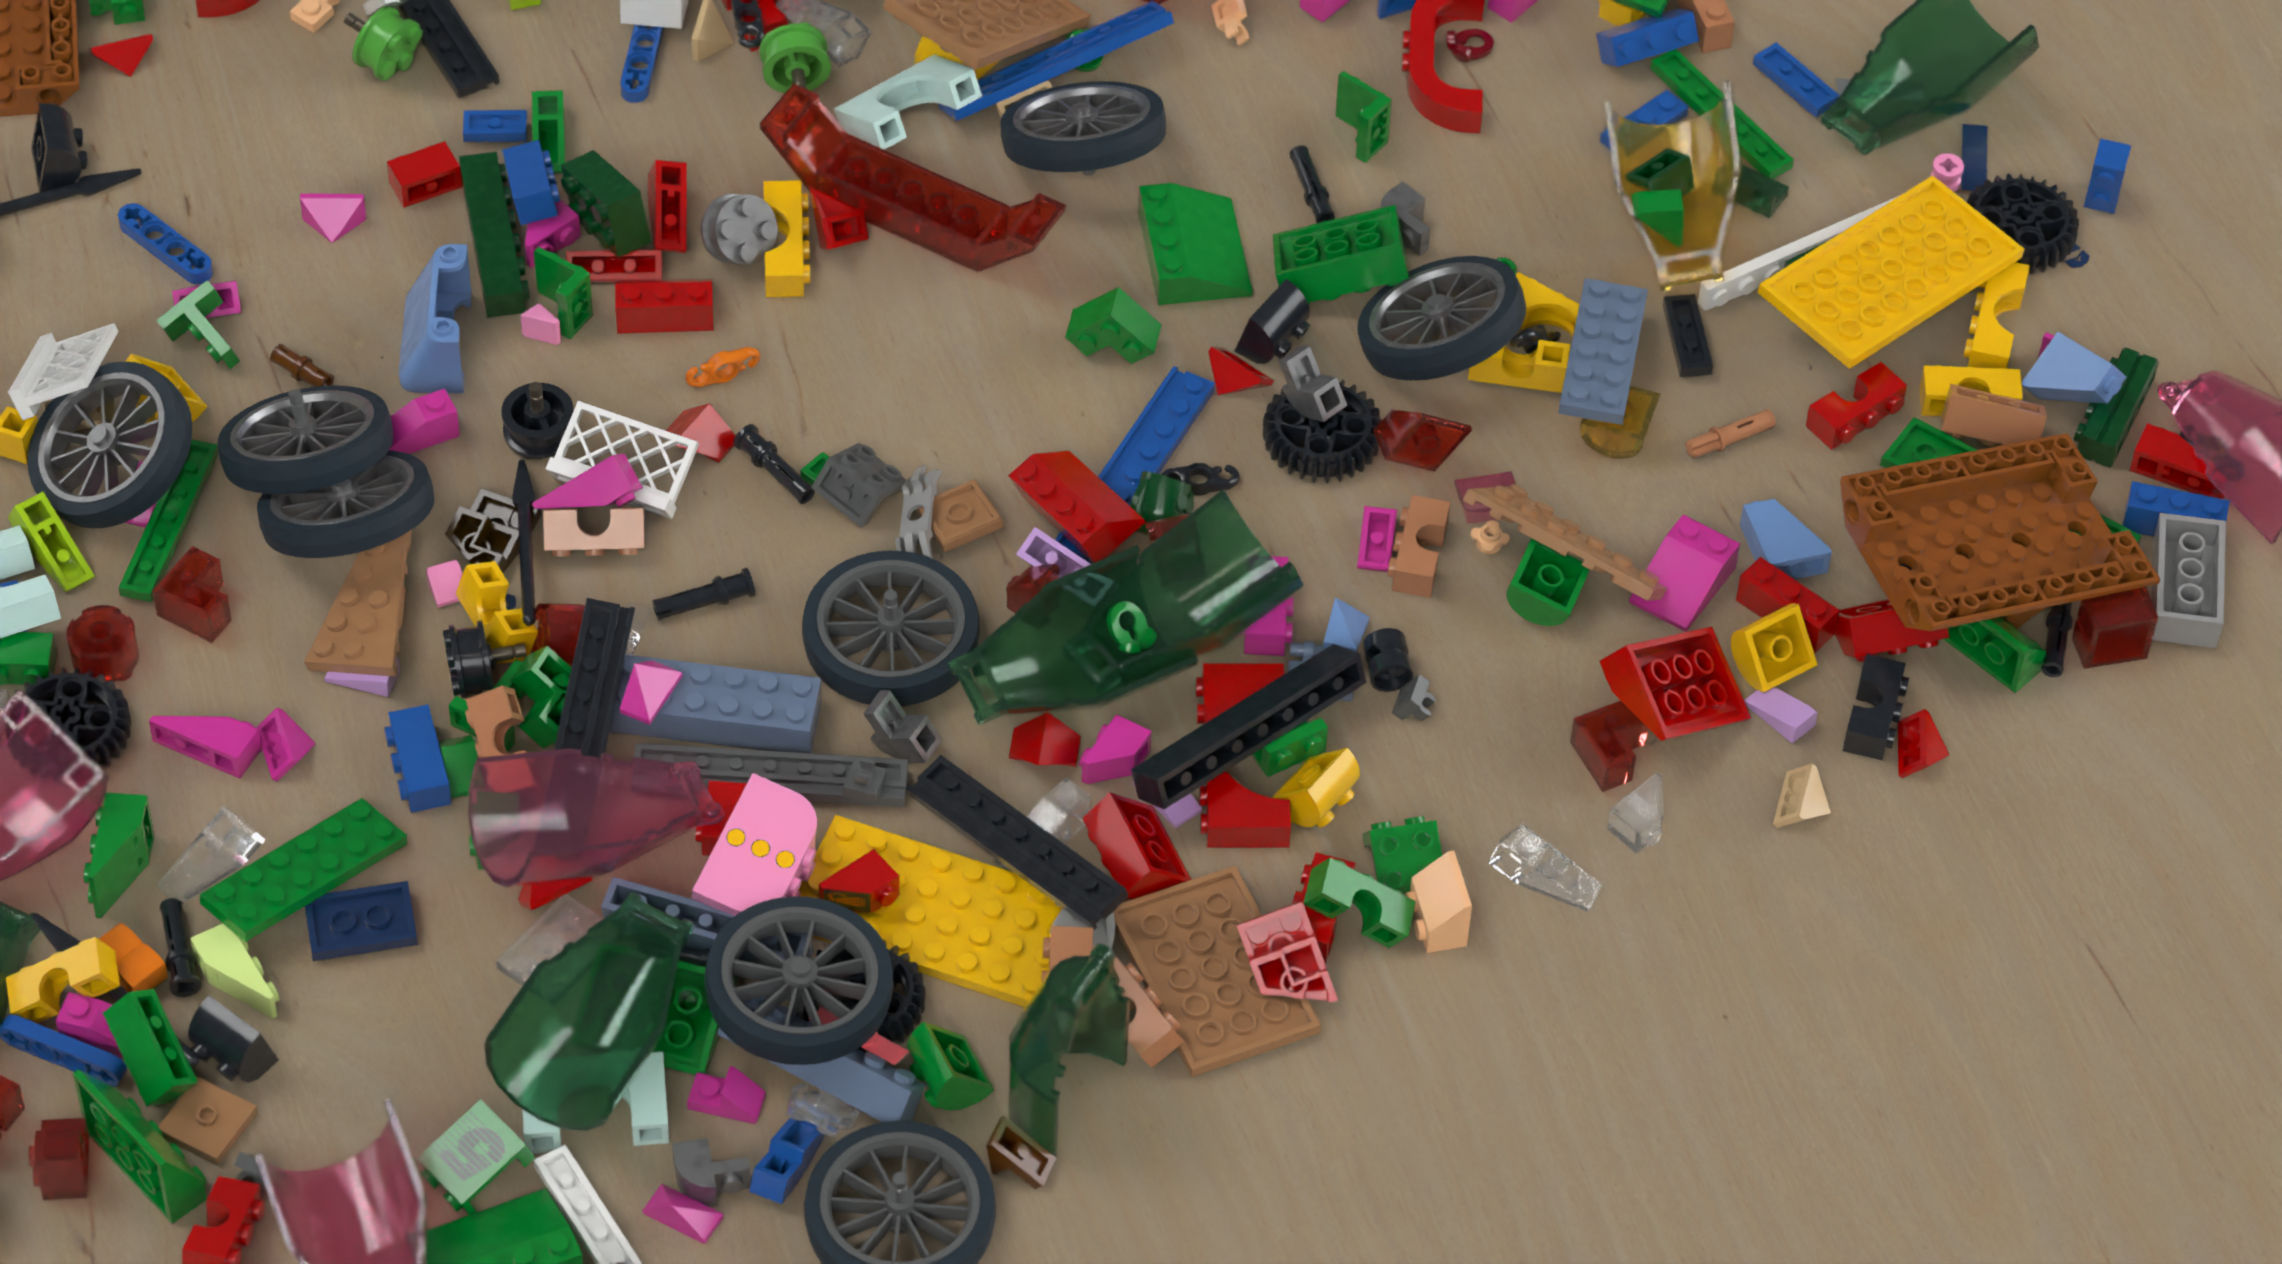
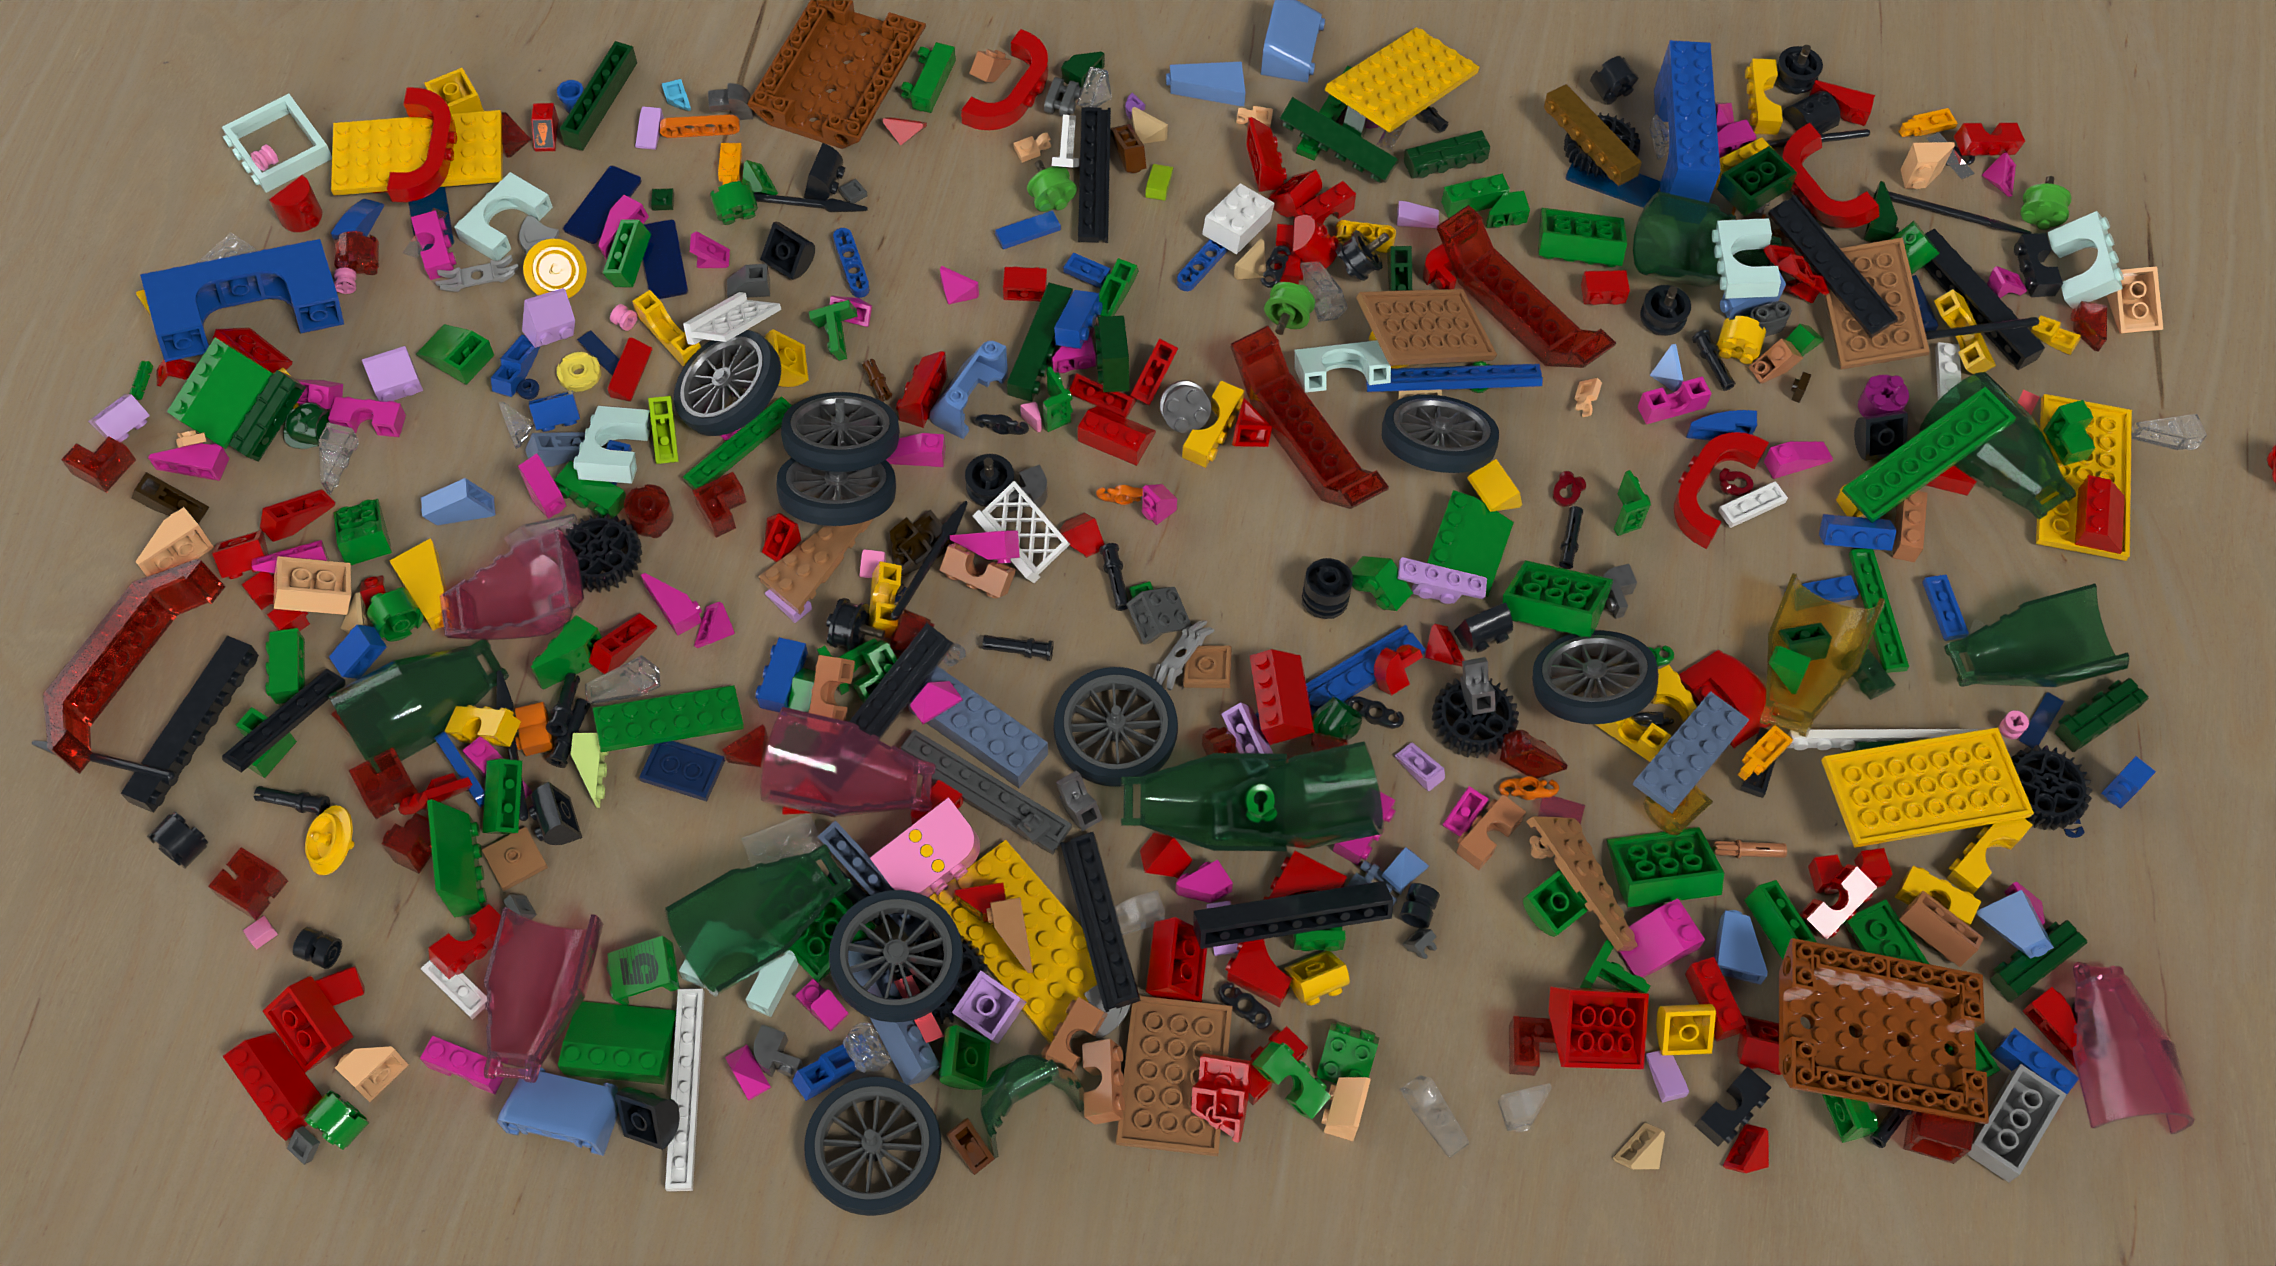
camera: 30 degrees right, 10 degrees up
(43, 314) = (750, 279): none -> dark grey slope
(51, 1086) = (438, 790): none -> red slope
(72, 260) = (787, 251): none -> black brick
(106, 157) = (853, 191): none -> dark grey tile
(155, 921) = (562, 711): none -> black pin
(175, 816) = (621, 643): none -> red slope
(299, 600) = (780, 537): none -> red slope
(374, 347) = (923, 389): none -> red slope
(380, 110) = (1028, 229): none -> blue tile
(432, 861) = (748, 749): none -> clear red slope
(493, 351) = (1002, 424): none -> black piece
(600, 394) = (1034, 485): none -> flat silver brick
(775, 357) = (1158, 503): none -> dark pink slope
(919, 890) = (1010, 924): none -> medium nougat slope
(945, 992) = (989, 1007): none -> lavender slope
(1054, 362) = (1327, 588): none -> black wheel
(1188, 161) = (1495, 487): none -> yellow slope
(1189, 297) = (1440, 582): none -> lavender bracket
(1189, 417) = (1391, 665): none -> red brick
(1263, 856) = (1257, 1007): none -> black piece
(1283, 122) = (1578, 485): none -> dark red piece
(1291, 514) = (1421, 766): none -> lavender slope
(1422, 481) = (1538, 792): none -> orange piece
(1505, 59) = (1753, 504): none -> white plate
(1605, 261) = (1733, 684): none -> red slope
(1647, 494) = (1665, 867): none -> green slope
(1648, 628) = (1613, 973): none -> green bracket
(1686, 319) = (1765, 752): none -> light orange hinge
(1804, 488) = (1777, 916): none -> green brick
(1873, 416) = (1853, 890): none -> arch
(2036, 120) = (2101, 714): none -> dark green brick

